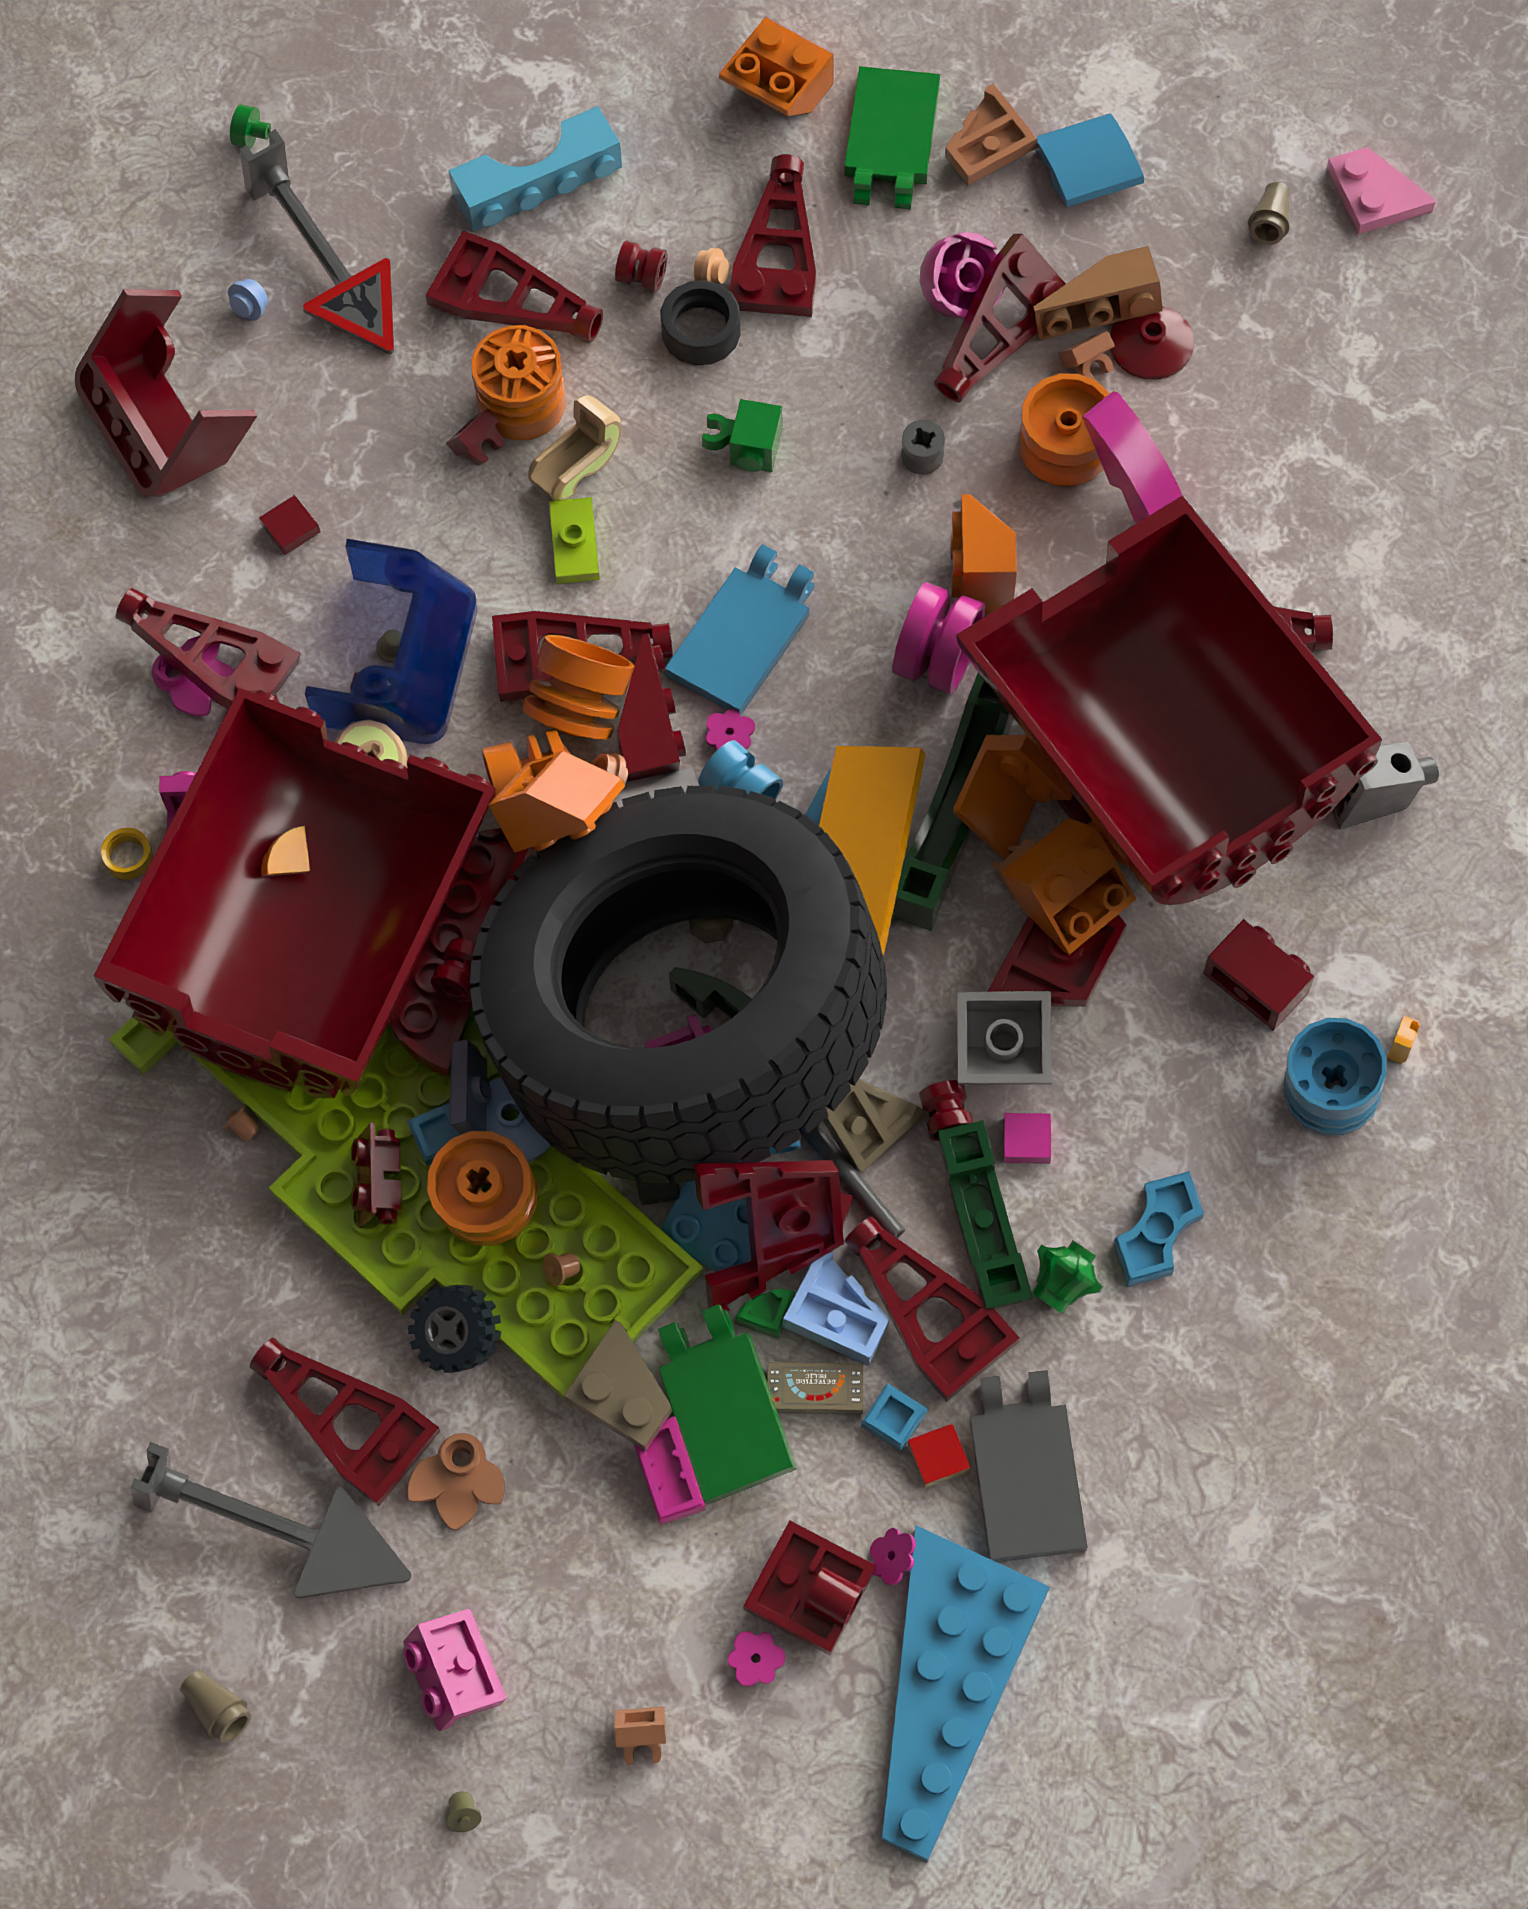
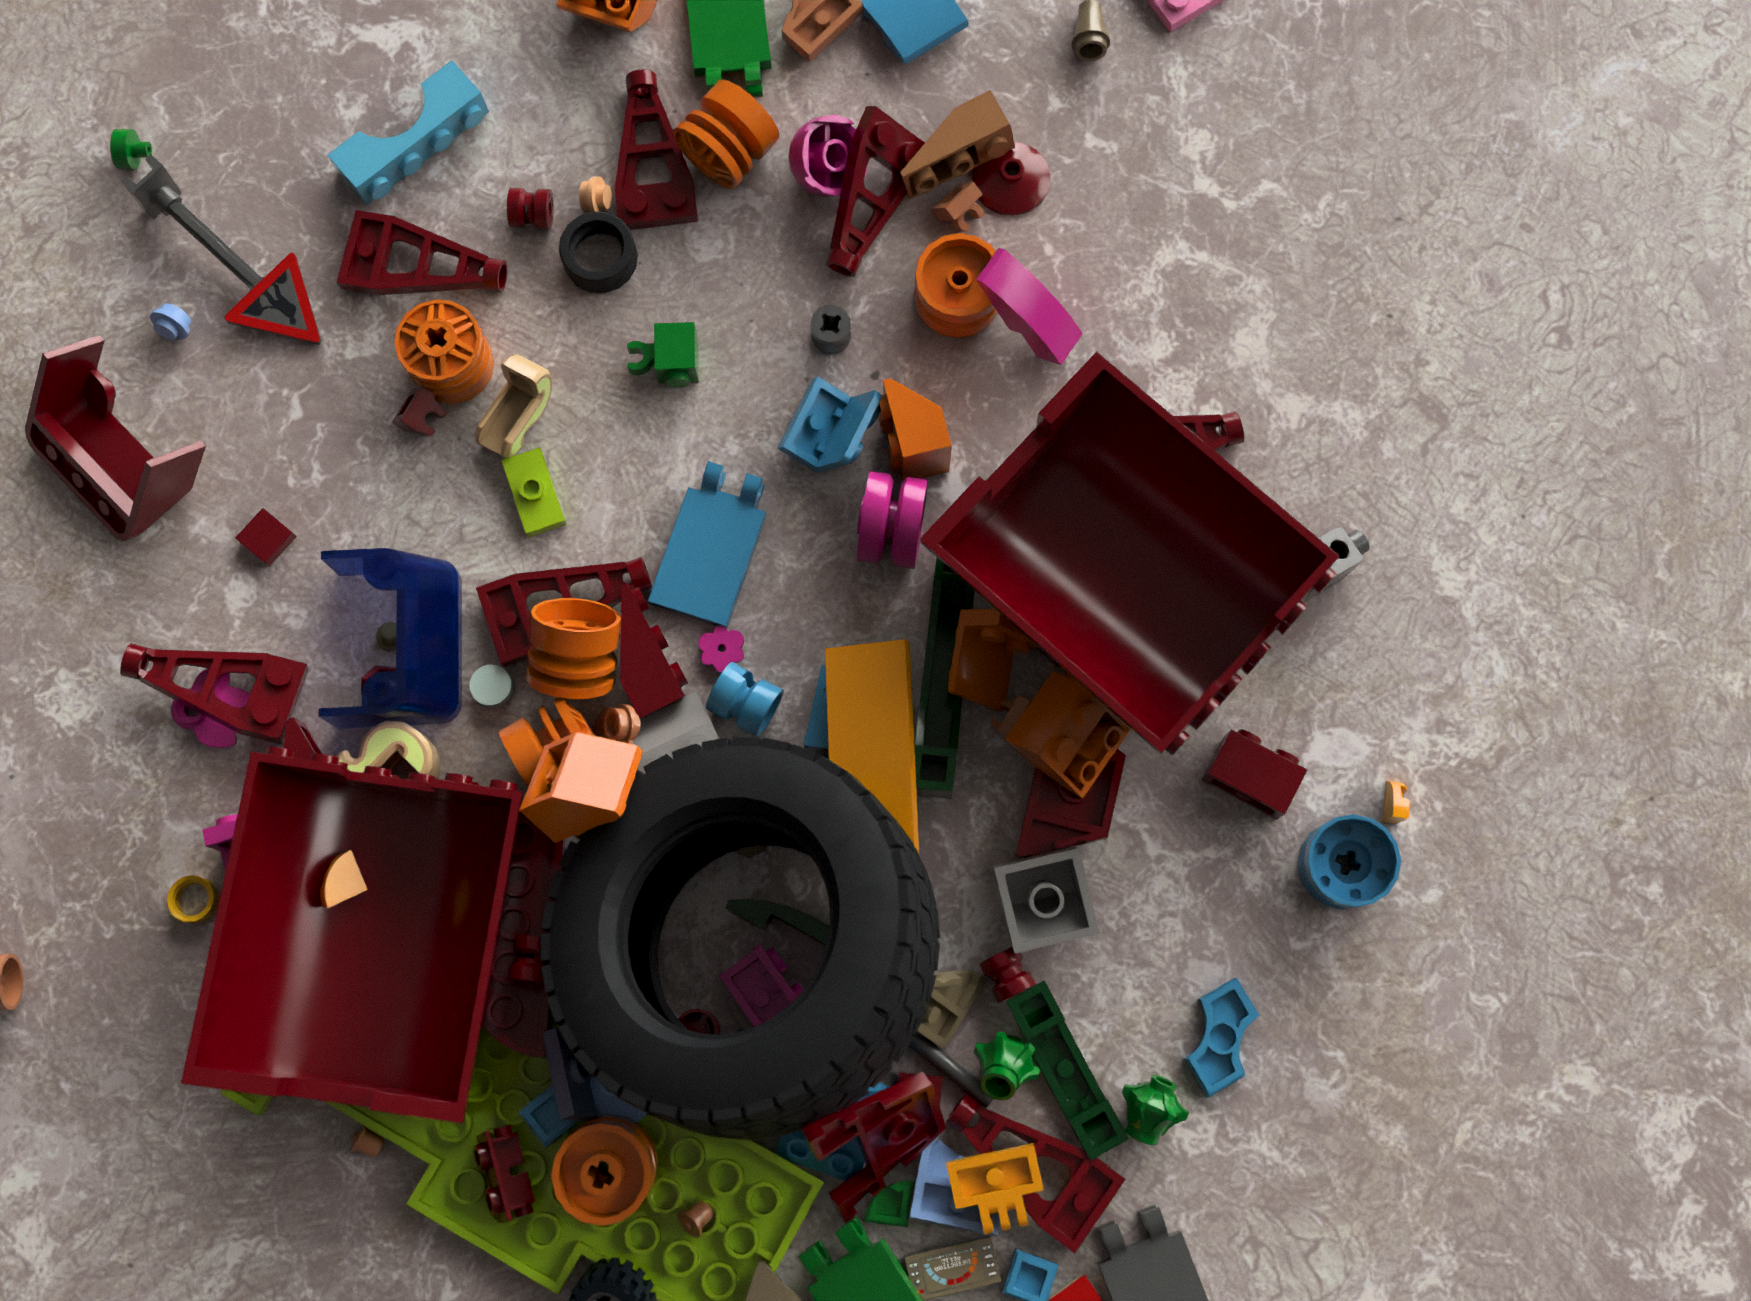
camera: 15 degrees left, 10 degrees up
(482, 716) = (491, 686): none -> light aqua tile
(861, 233) = (726, 134): none -> orange wheel
(881, 1302) = (996, 1183): none -> light orange hinge
(894, 537) = (829, 426): none -> dark azure bracket
(921, 1195) = (1005, 1065): none -> green rock
(1027, 1138) = (1084, 979): dark pink tile -> none

